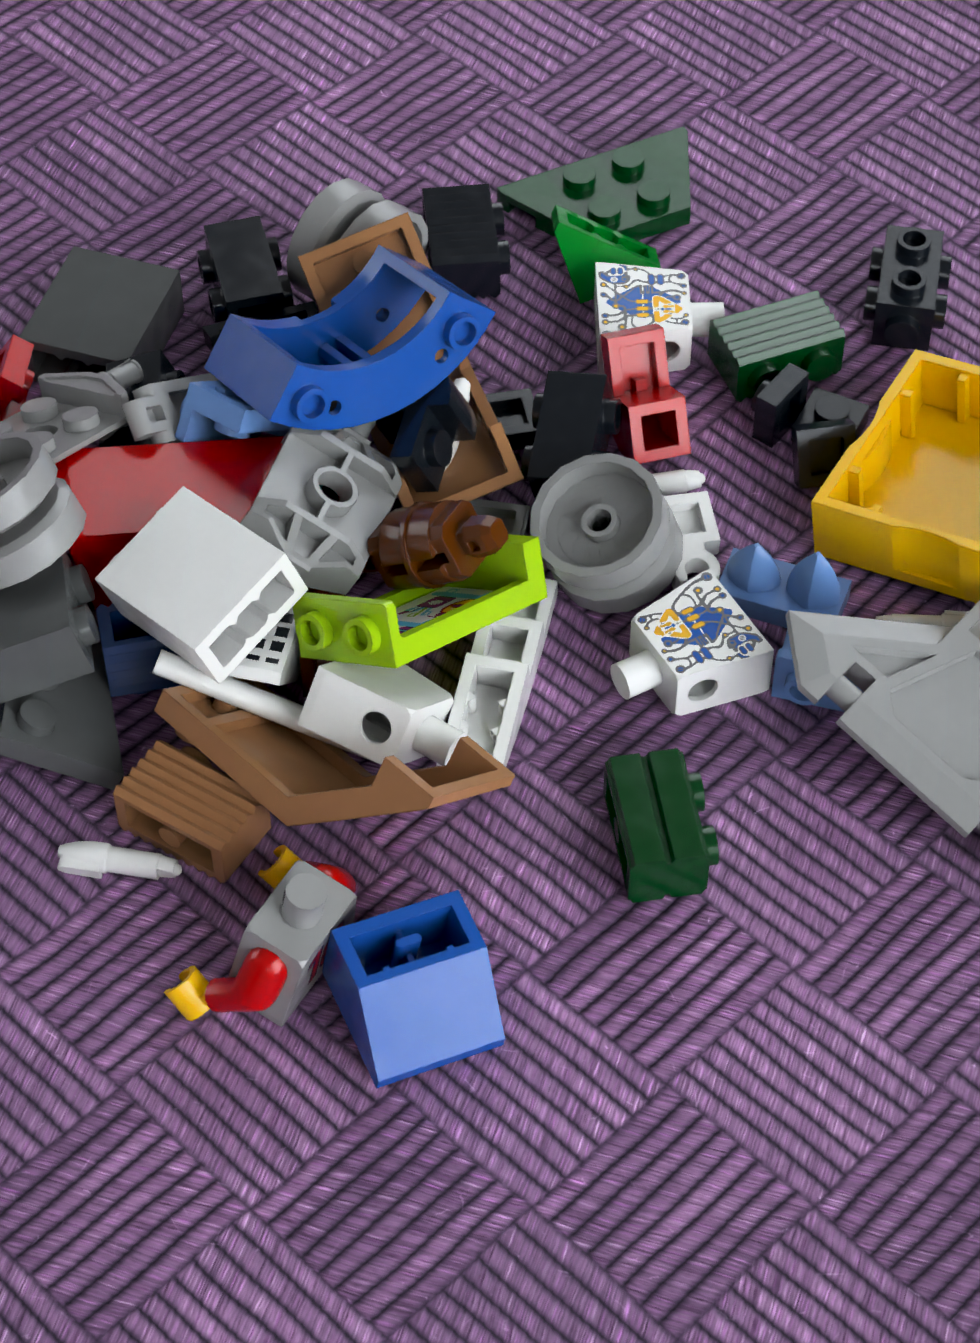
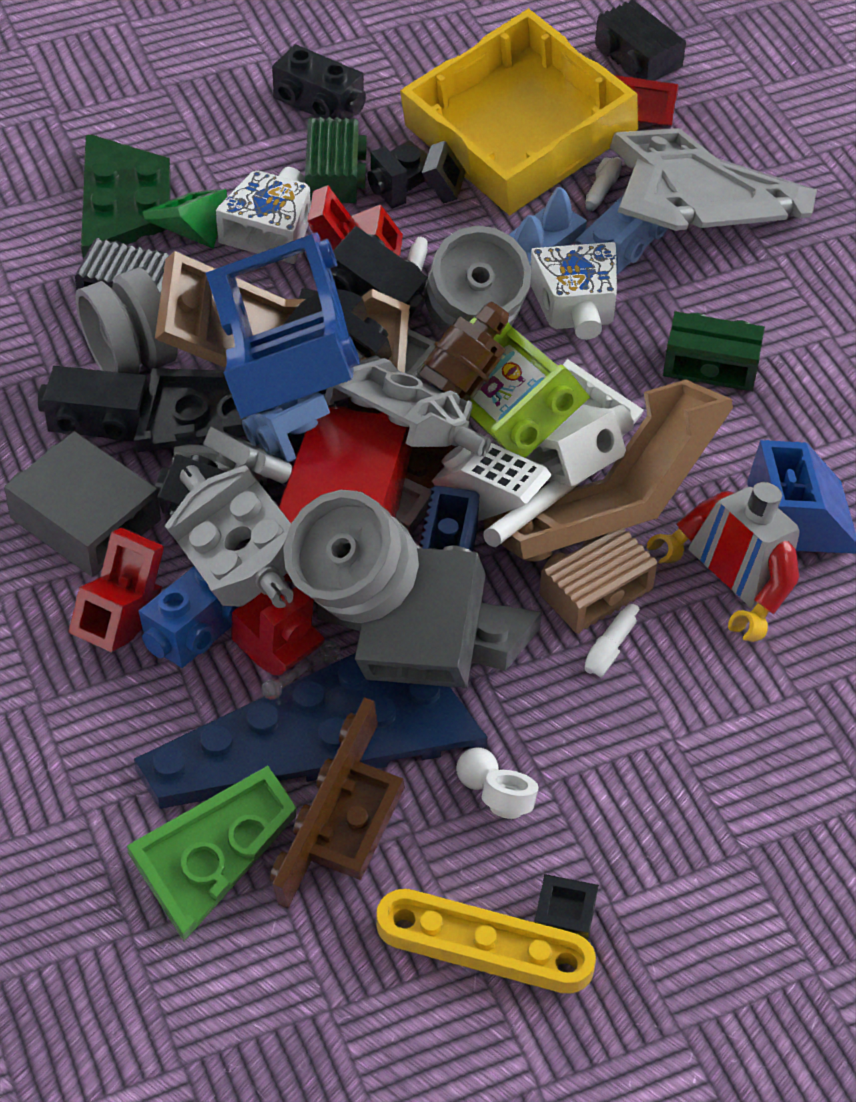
camera: 70 degrees left, 0 degrees up
(202, 584) = (465, 473): white brick -> none

